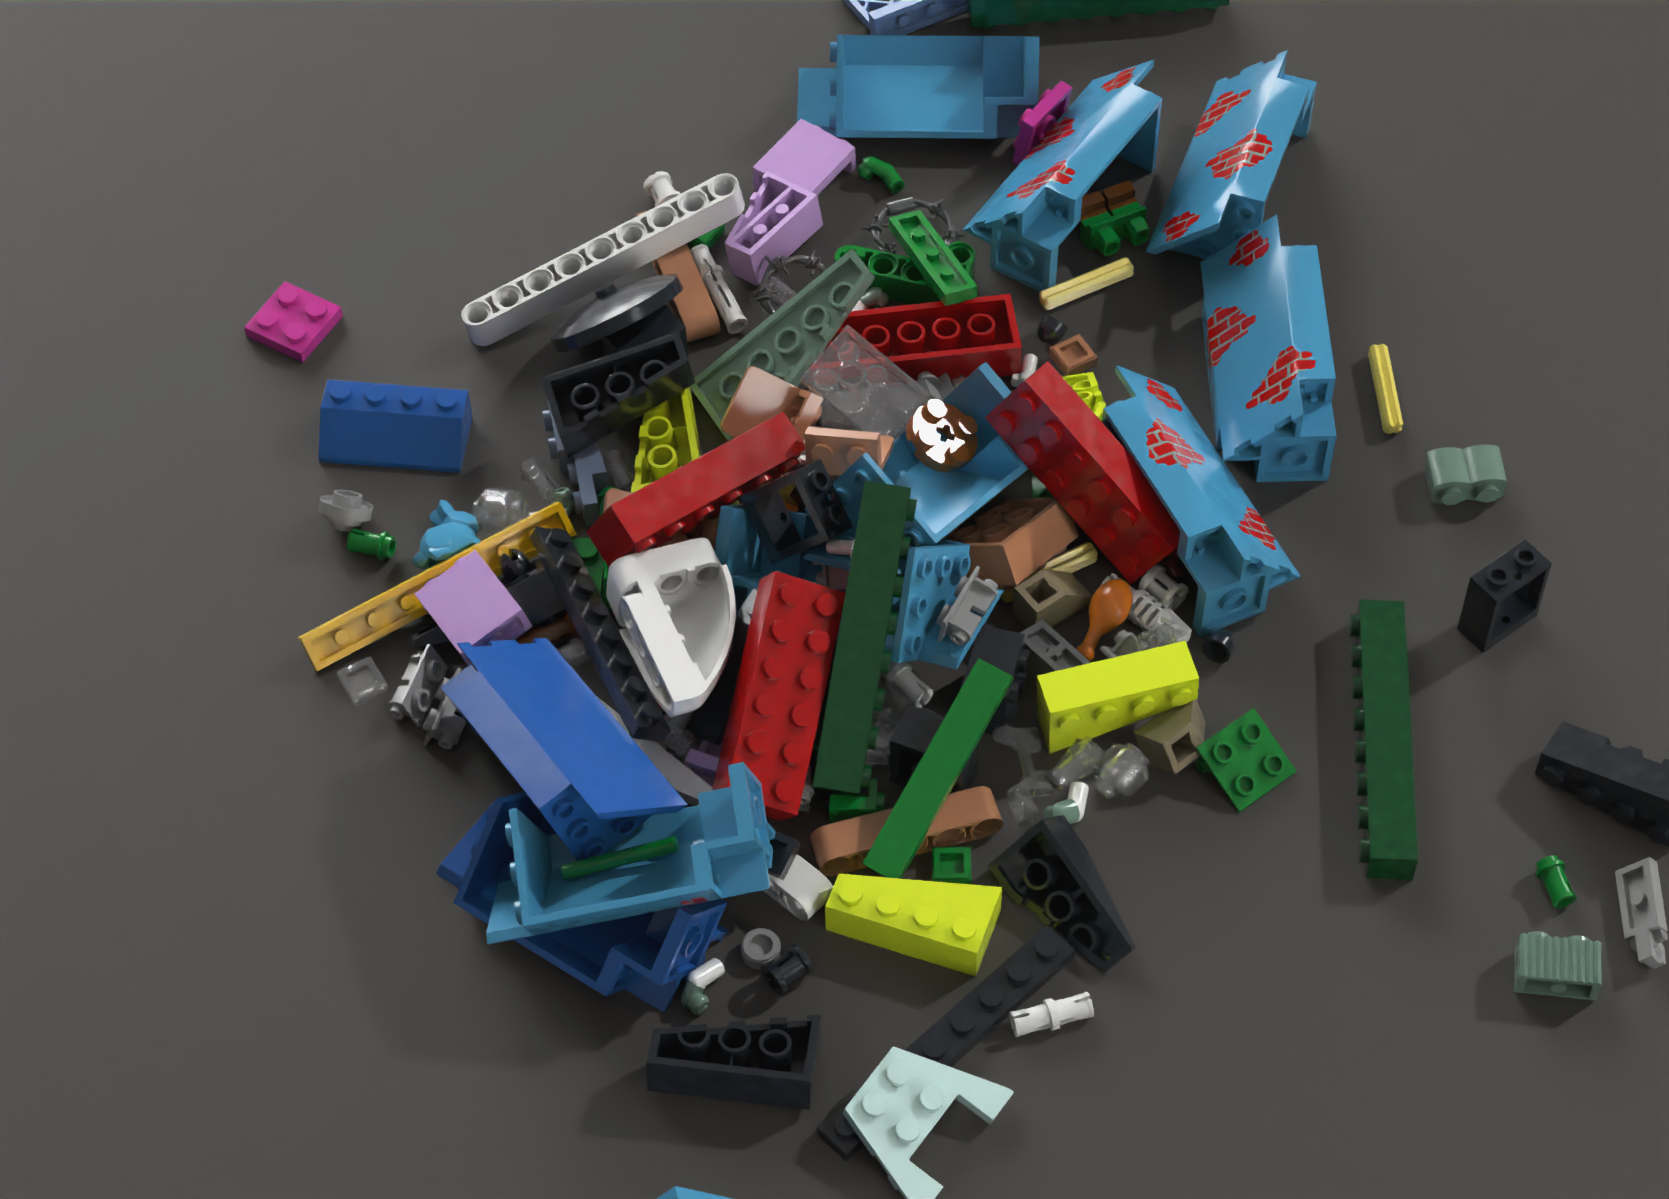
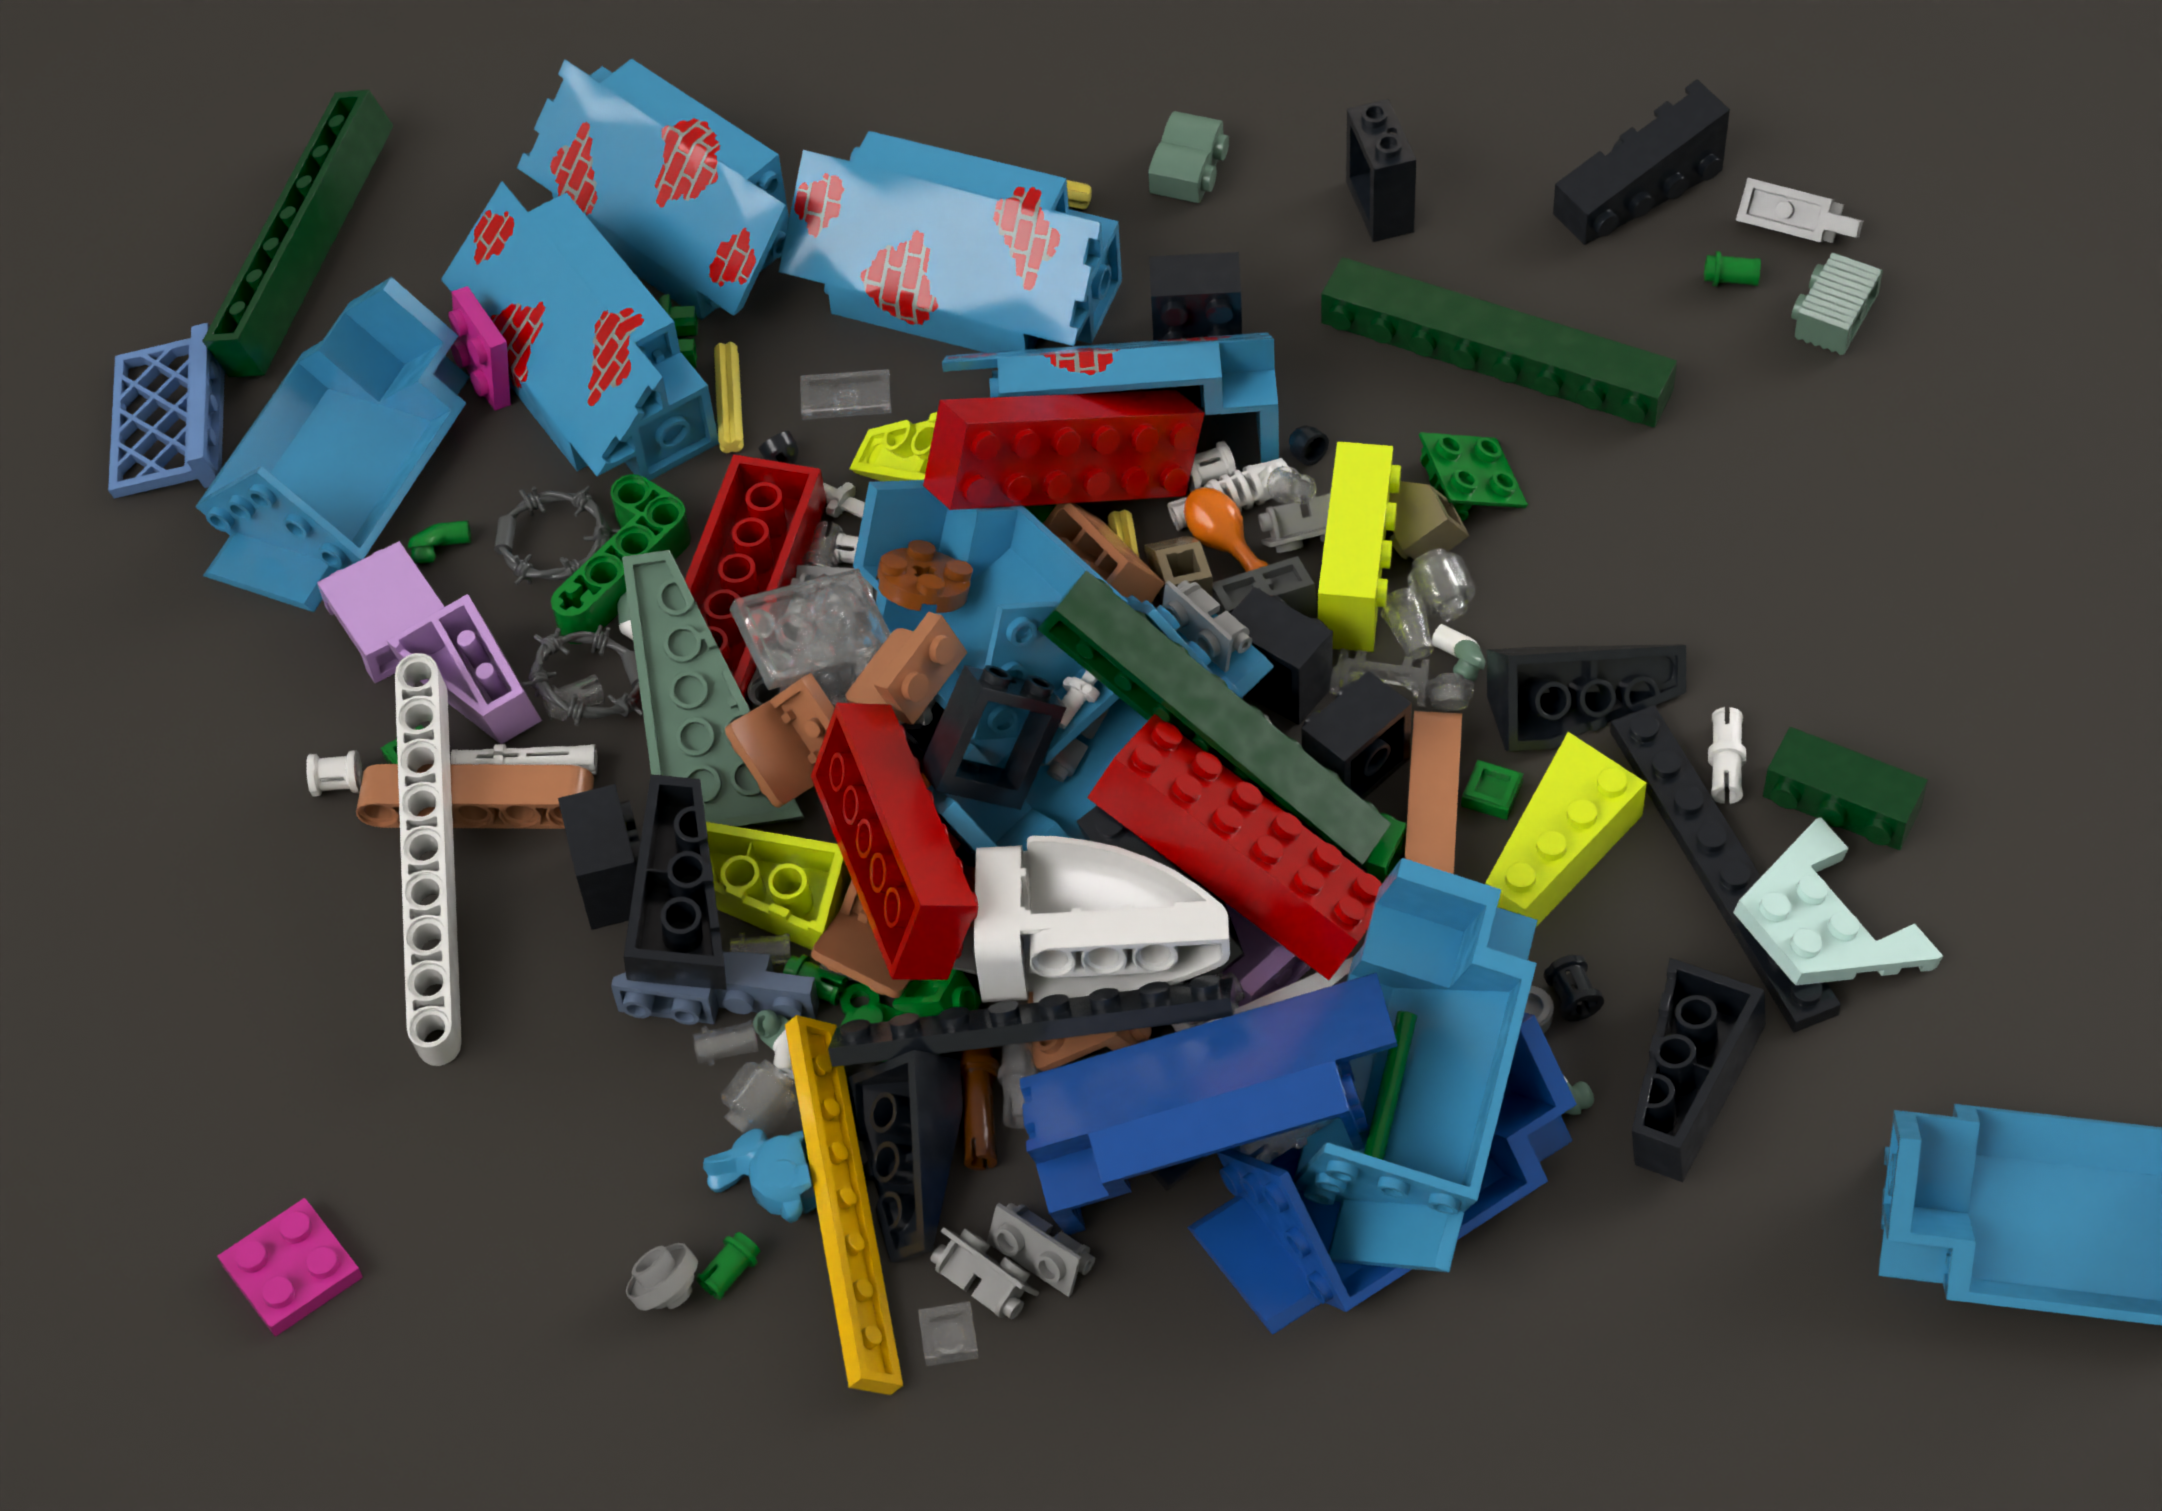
camera: 65 degrees left, 0 degrees up
(394, 426) = (550, 1185): blue slope -> none
(472, 605) = (916, 1157): lavender panel -> none
(515, 564) = (860, 1100): black hinge -> none
(615, 310) = (536, 860): black dish -> none
(932, 258) = (636, 510): green plate -> none
(938, 770) = (1410, 726): green tile -> none
(1048, 1102) = (1844, 788): none -> dark green brick
(1073, 355) = (826, 445): nougat tile -> none
(1121, 345) = (845, 394): none -> clear plate
(1305, 521) = (1195, 295): none -> black brick

